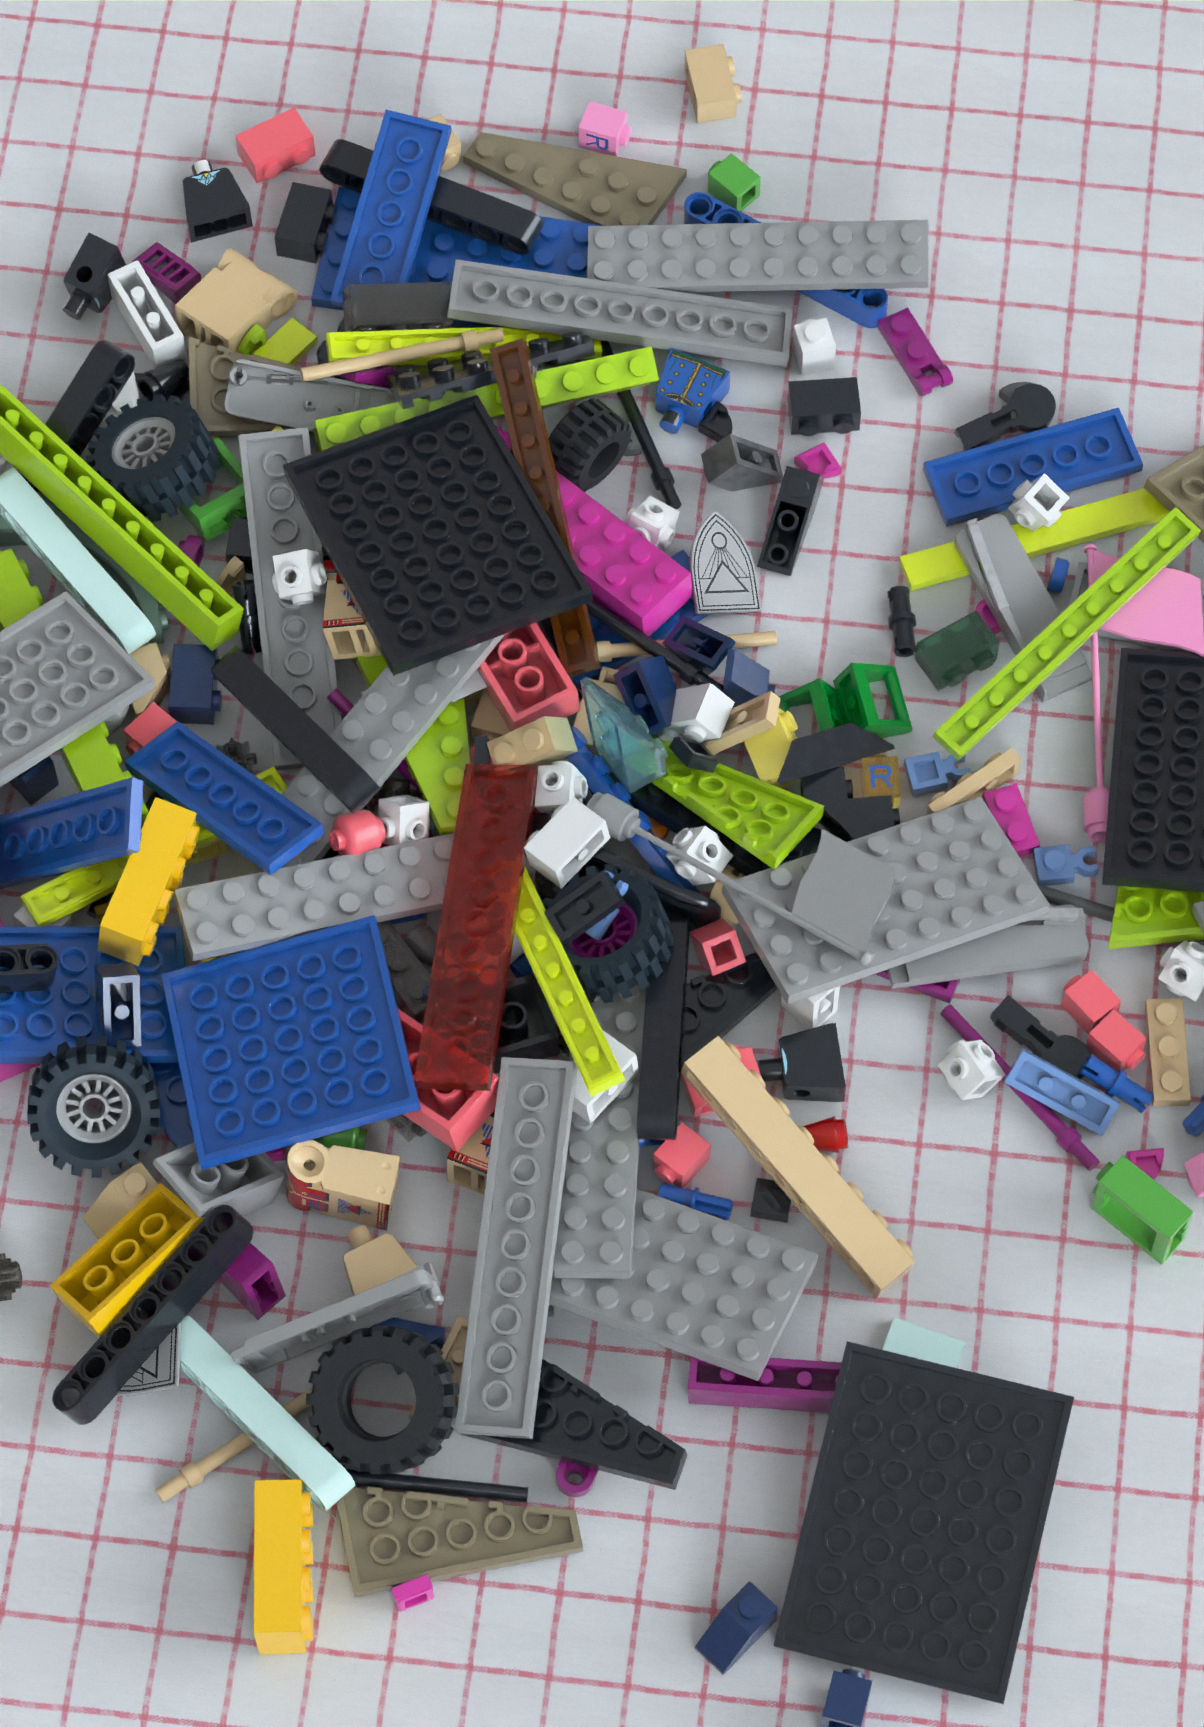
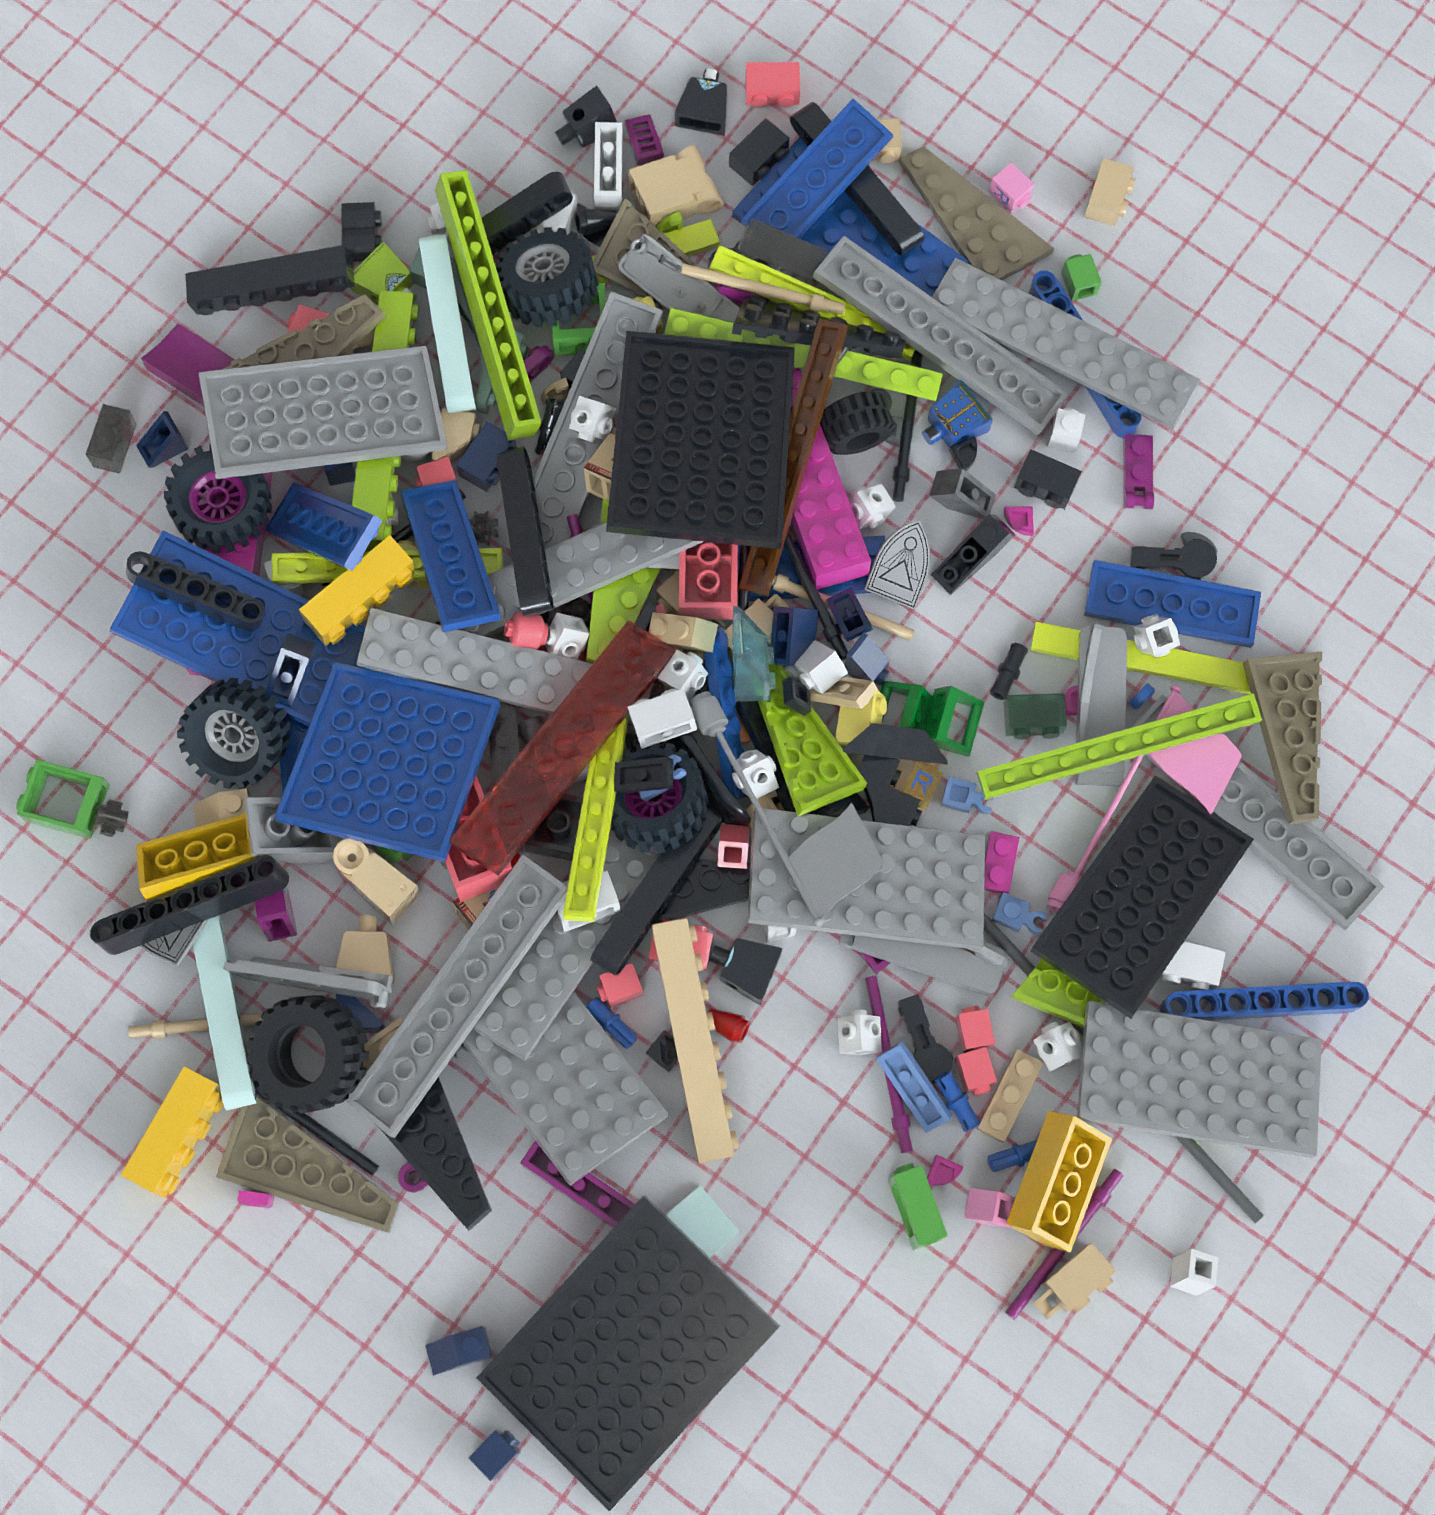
camera: 25 degrees right, 10 degrees up
(996, 772) = (985, 822): tan plate -> none

